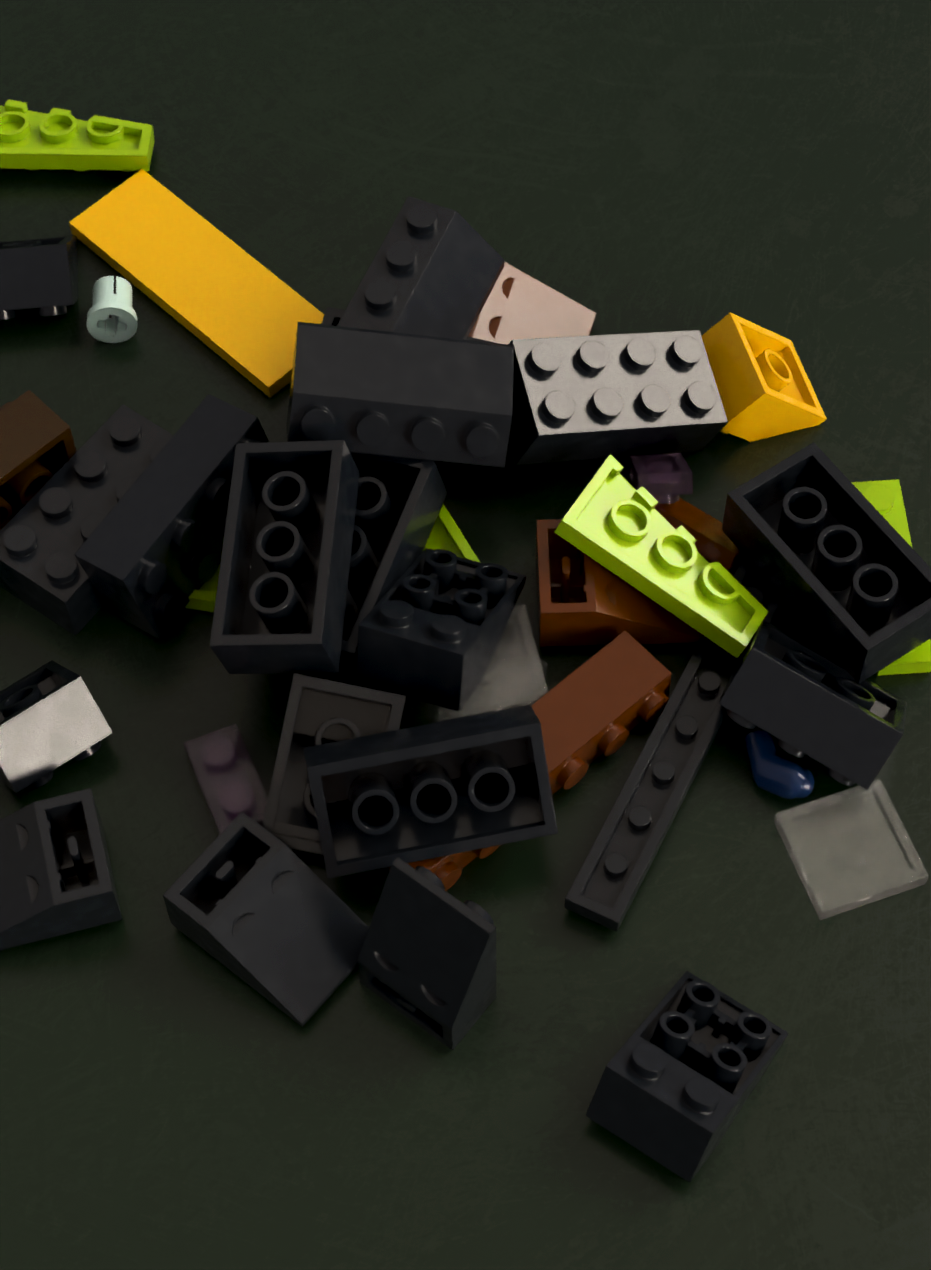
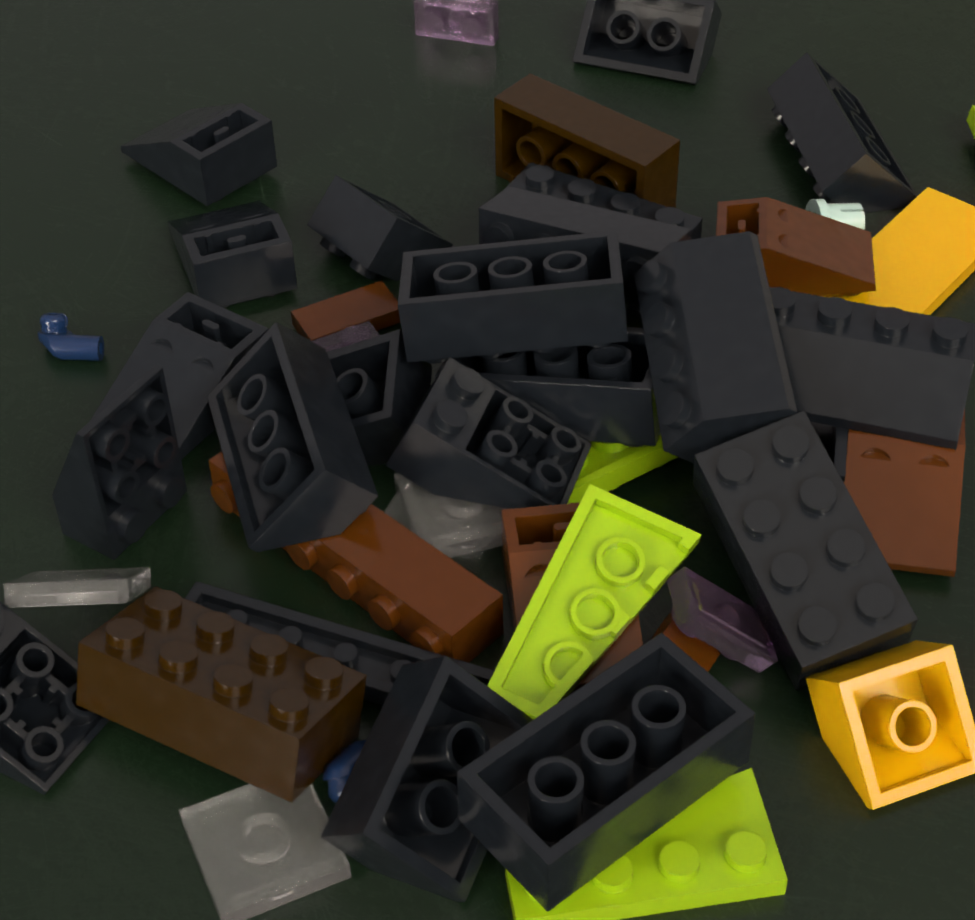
camera: 85 degrees right, 15 degrees down
(153, 1069) = (64, 343): none -> dark blue arm
(162, 768) = (334, 314): none -> reddish brown tile
(176, 347) = (802, 247): none -> reddish brown slope
(573, 999) = (77, 587): none -> clear tile
(717, 864) = (221, 691): none -> dark brown brick

